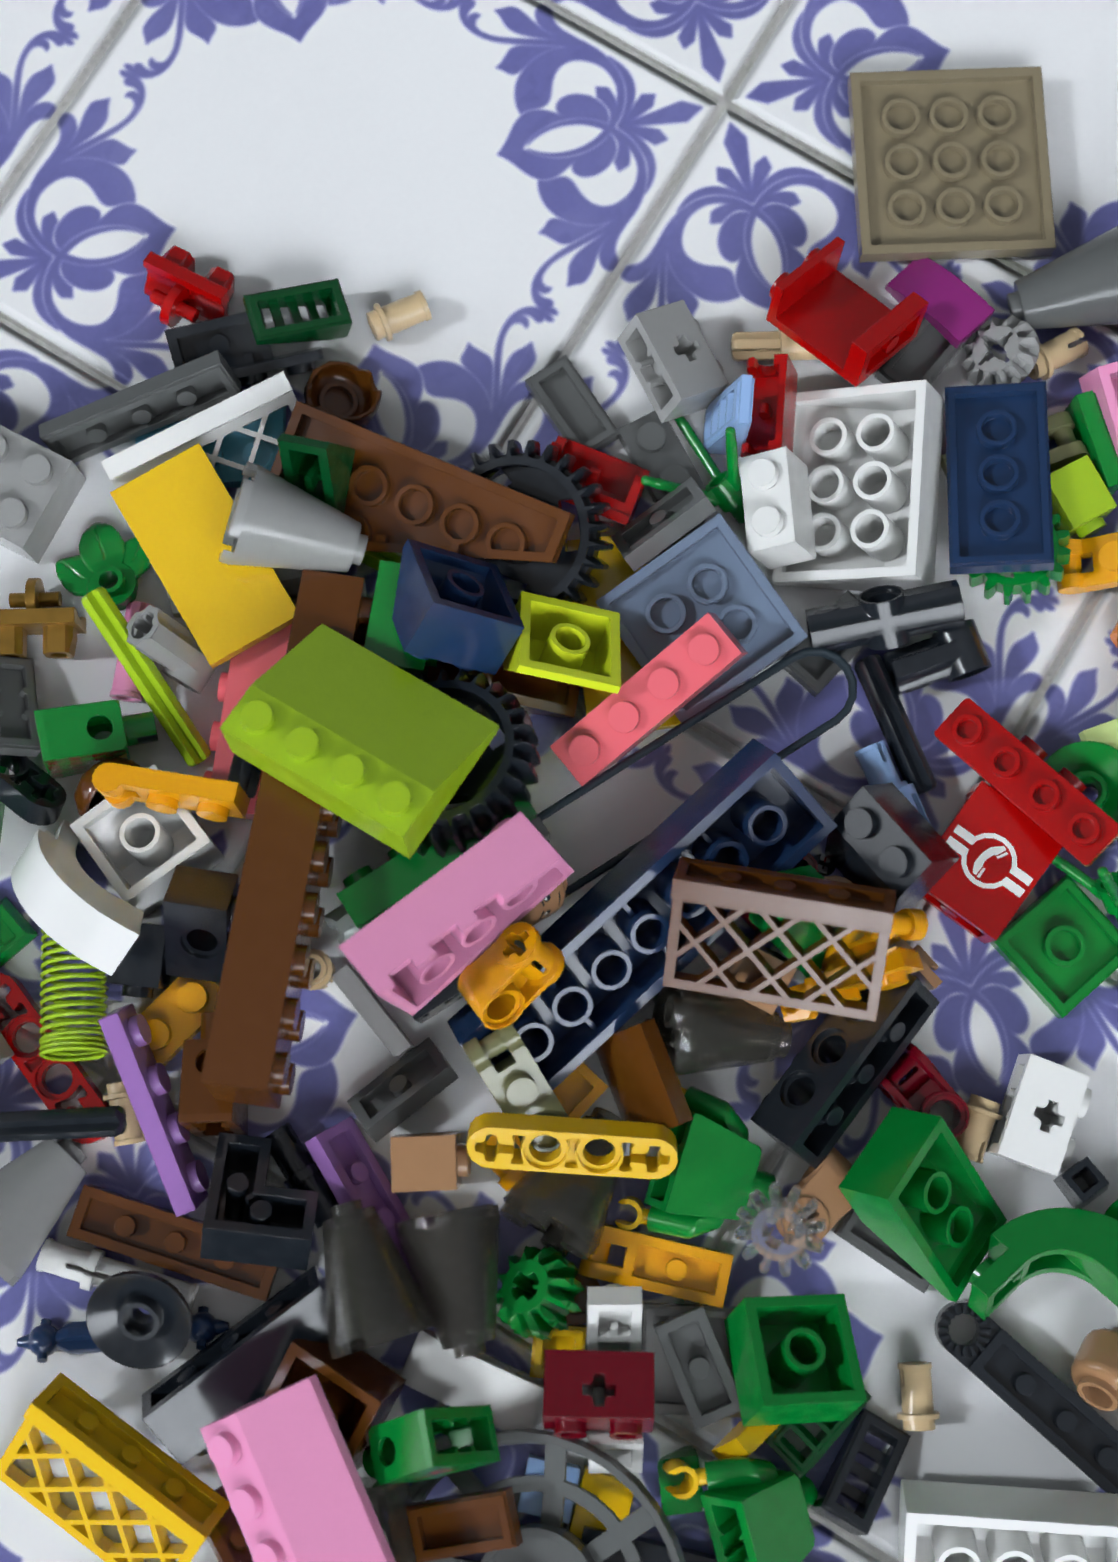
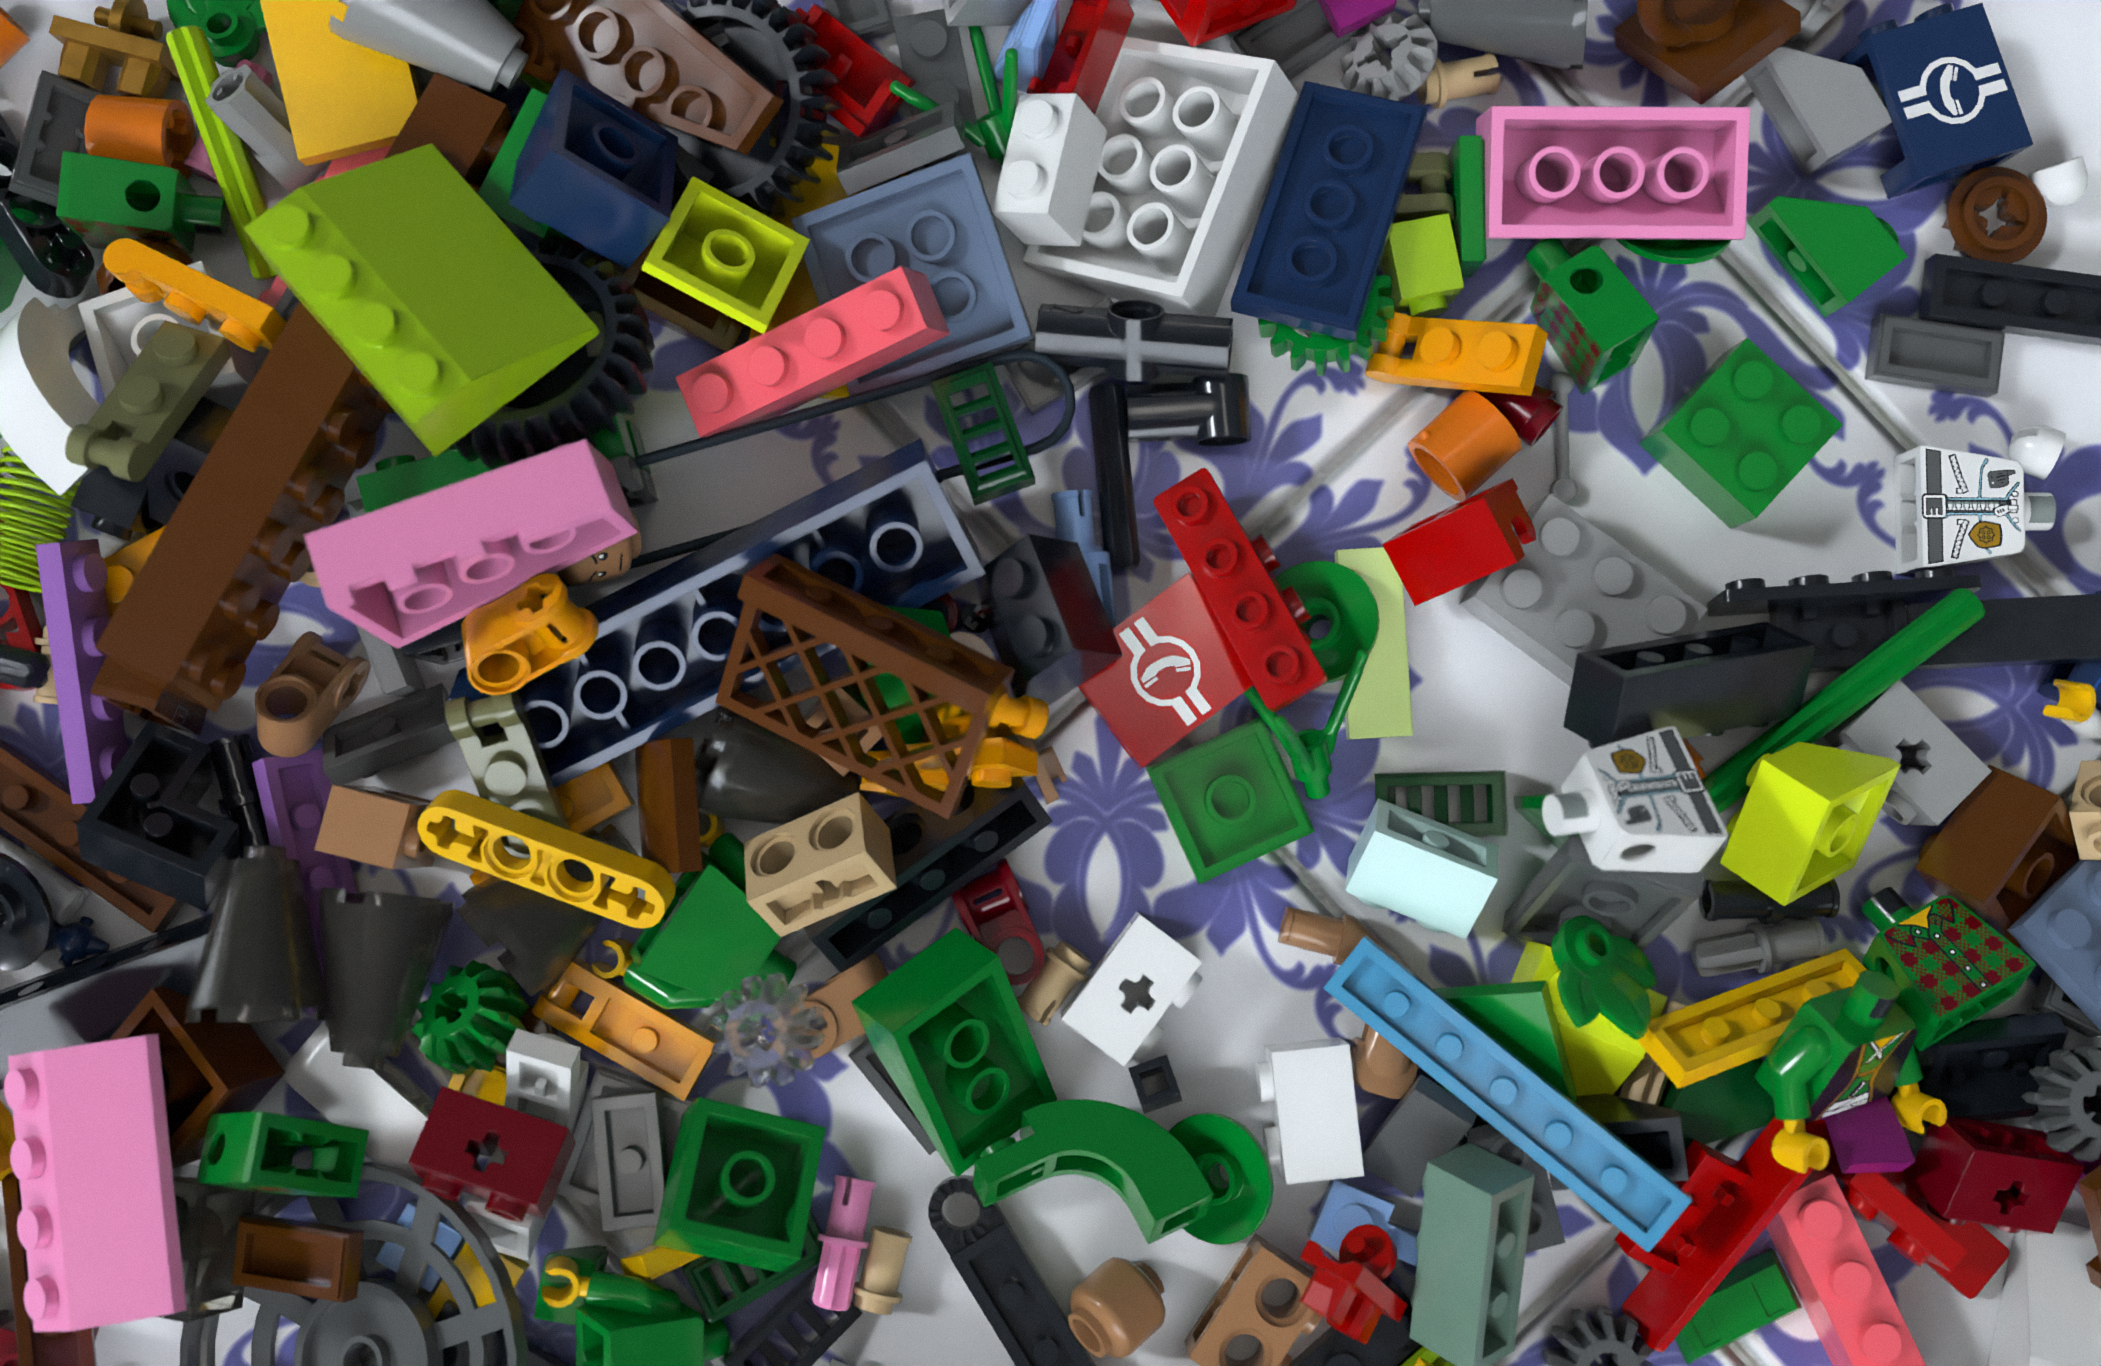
camera: 15 degrees right, 5 degrees up
(72, 679) = (140, 130): none -> orange piece
(163, 881) = (149, 402): none -> olive plate
(331, 1070) = (310, 684): none -> medium nougat piece
(778, 1088) = (819, 865): none -> tan brick
(794, 746) = (1003, 480): none -> dark green slope
(880, 1384) = (843, 1243): none -> bright pink axle

